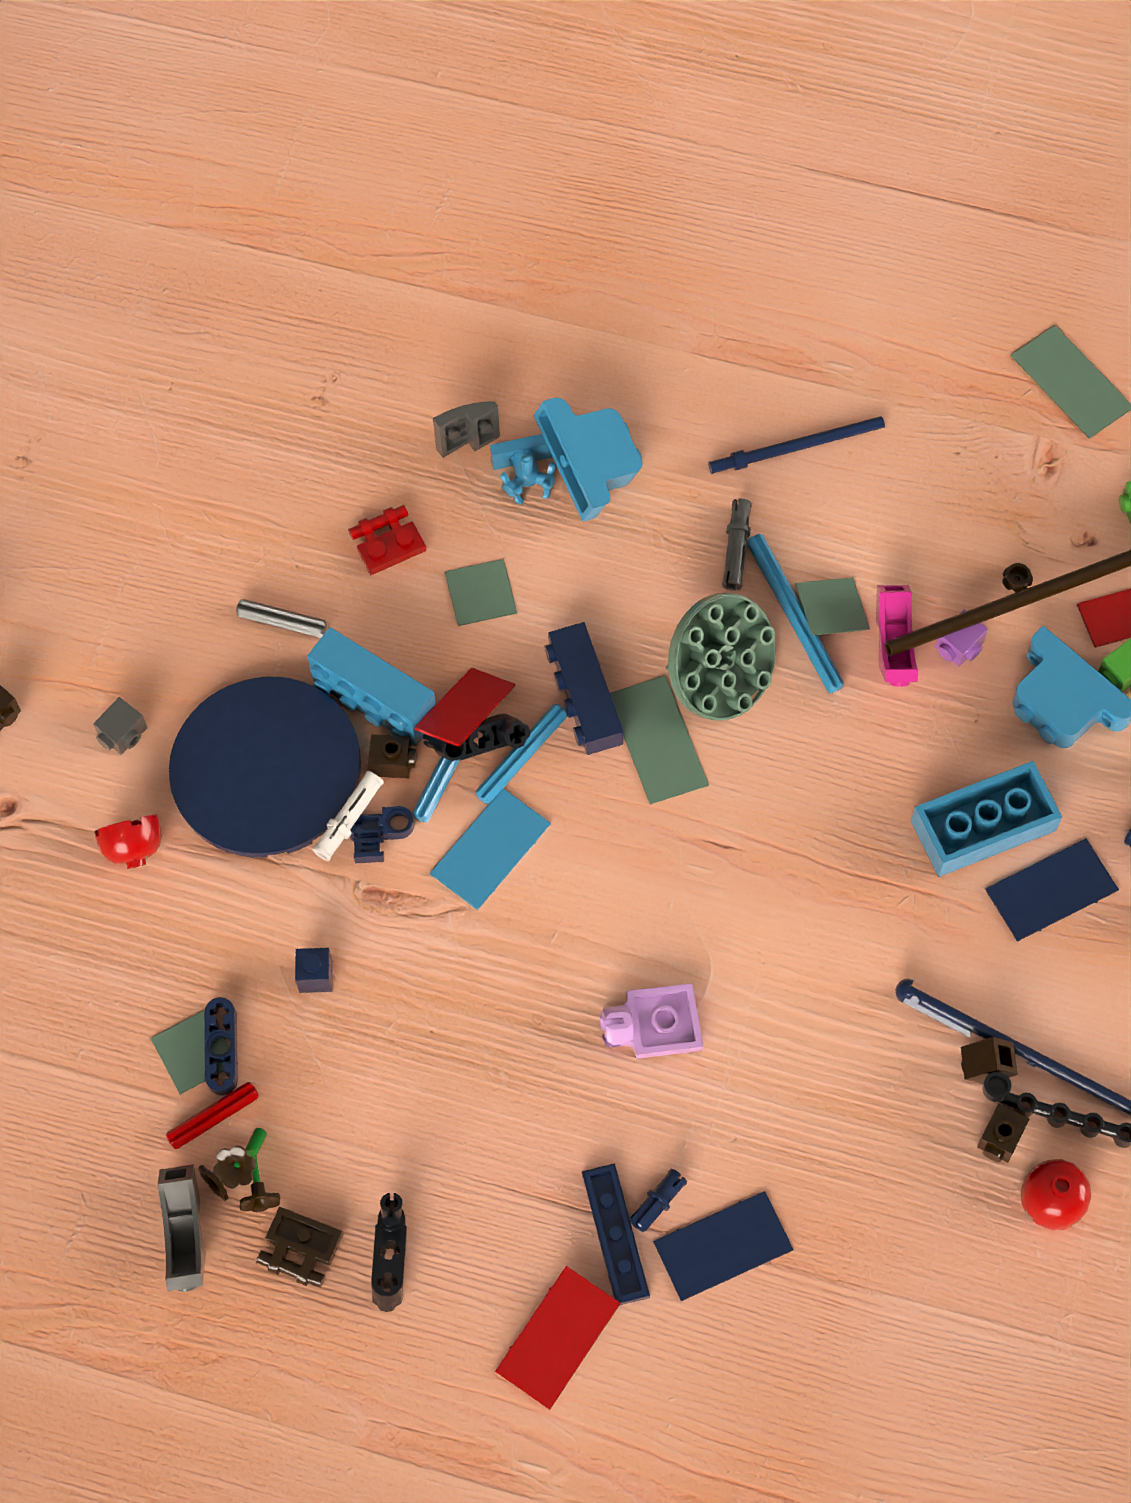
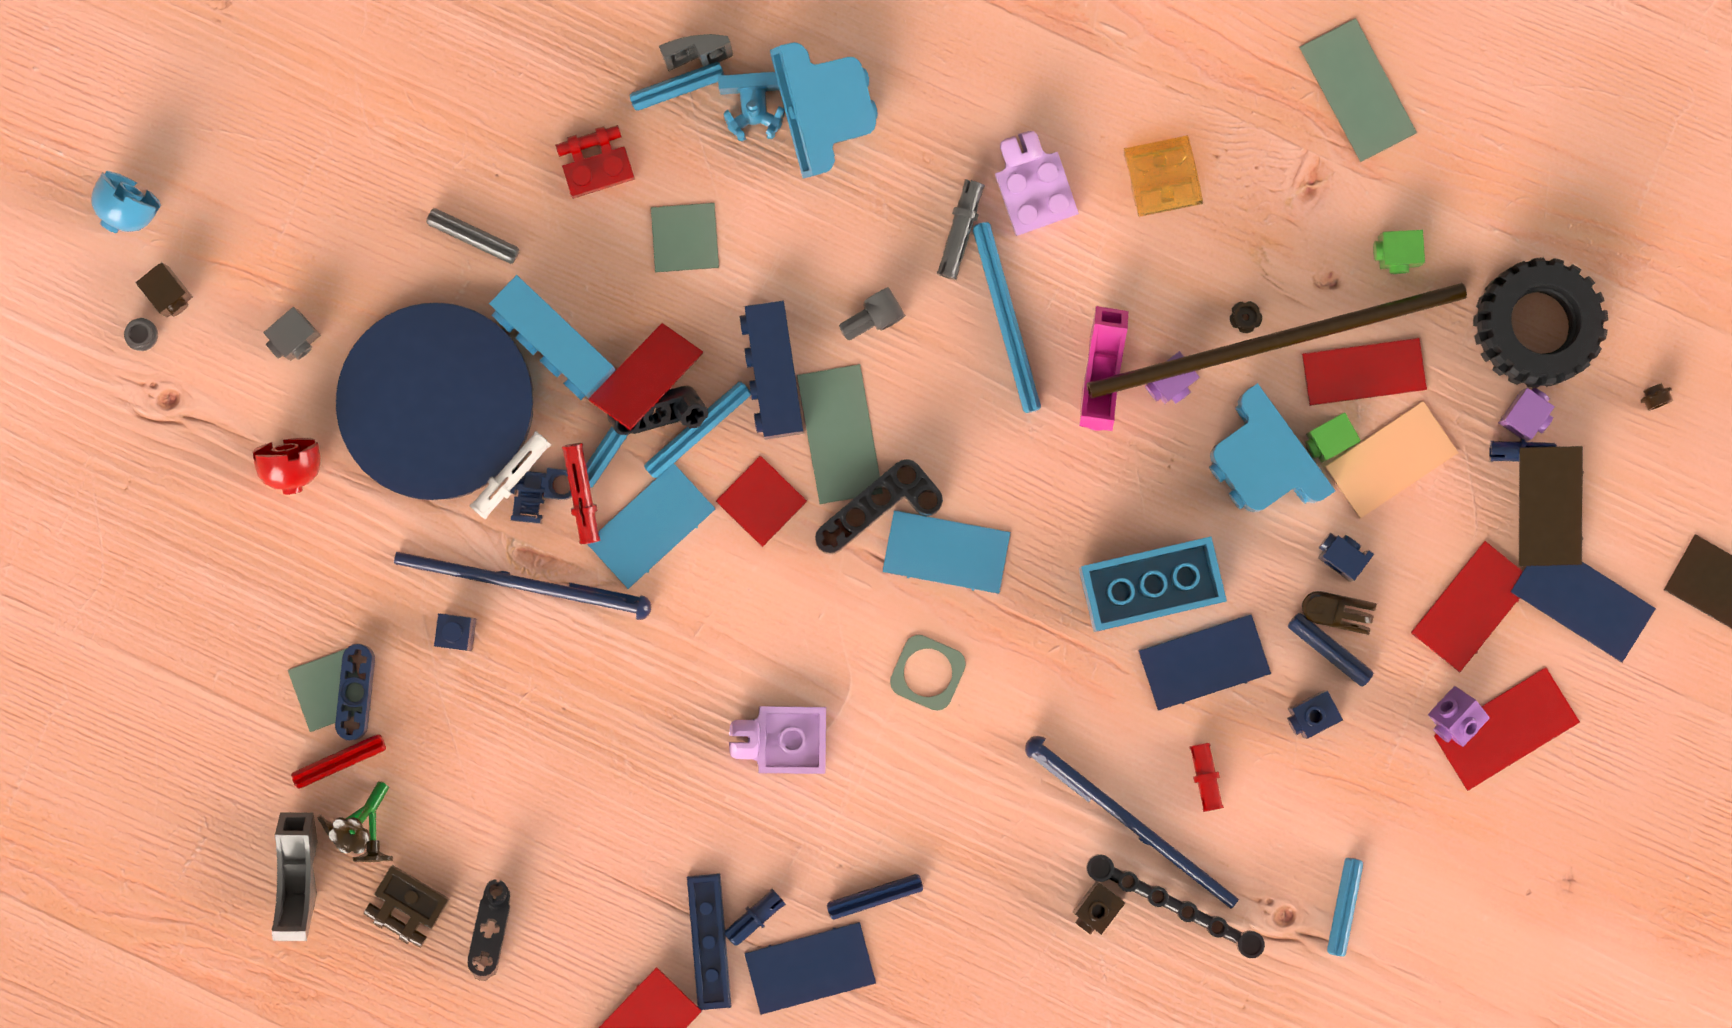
camera: 10 degrees right, 20 degrees up
(391, 756) = (564, 413): dark brown brick -> none
(430, 859) = (583, 506): none -> red pin
(441, 919) = (575, 592): none -> dark blue bar
(451, 466) = (676, 86): none -> dark azure axle
(593, 810) = (761, 501): none -> red piece
(664, 631) = (880, 311): none -> dark grey axle
(704, 797) = (872, 511): none -> black beam
(721, 656) = (917, 367): sand green bracket -> none
(741, 459) = (983, 129): dark blue bar -> none
(775, 1161) = (875, 896): none -> dark blue axle
(780, 828) = (946, 552): none -> dark azure window
(796, 497) = (1033, 185): none -> lavender plate
(796, 968) = (957, 664): none -> sand green piece
(832, 606) = (1046, 317): sand green piece -> none
(913, 472) = (1163, 176): none -> clear yellow slope
(987, 1057) = (1099, 836): dark brown brick -> none
(1056, 1194) = (1137, 973): red cylinder -> none
(1080, 992) = (1206, 777): none -> red pin

